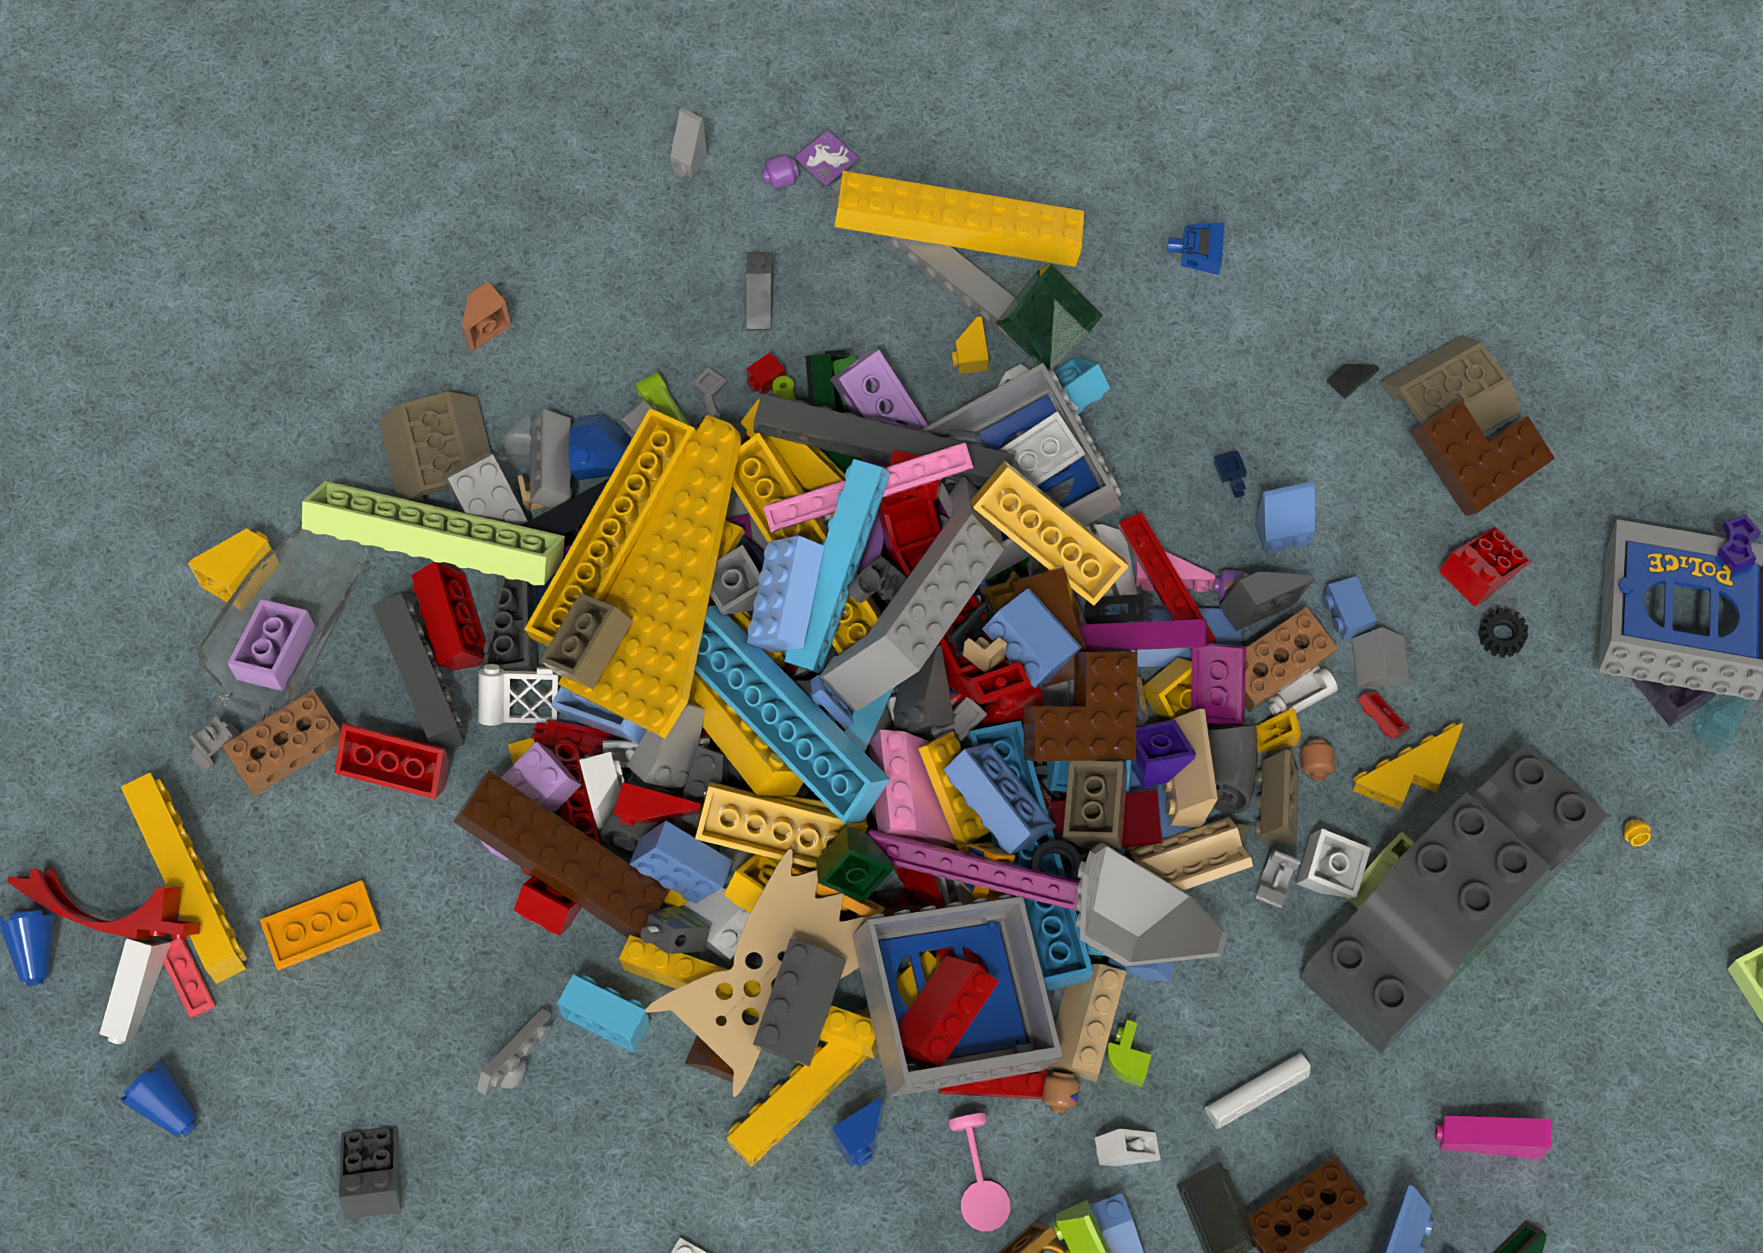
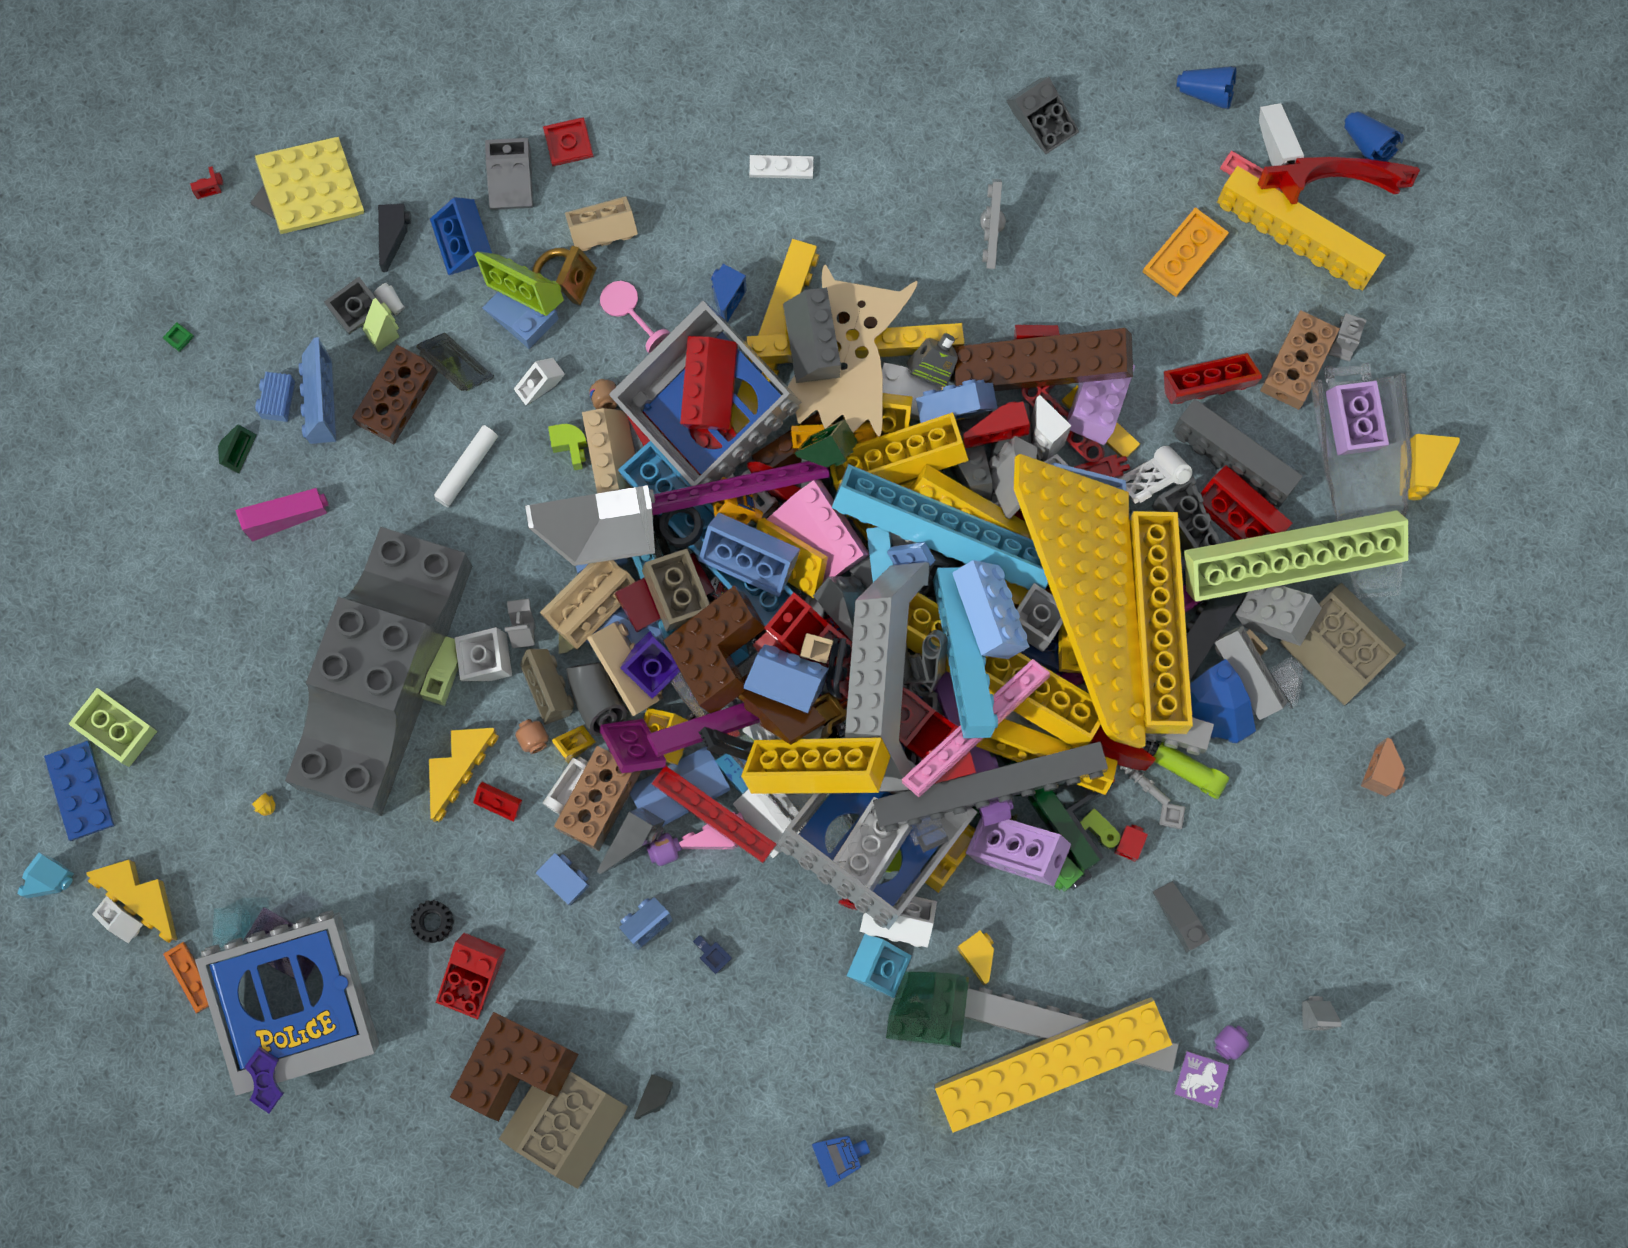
camera: 150 degrees right, 10 degrees up
(586, 640) = (1121, 512): dark tan brick -> none
(604, 1012) = (949, 284): medium azure brick -> none
(1380, 659) = (519, 849): light grey slope -> none

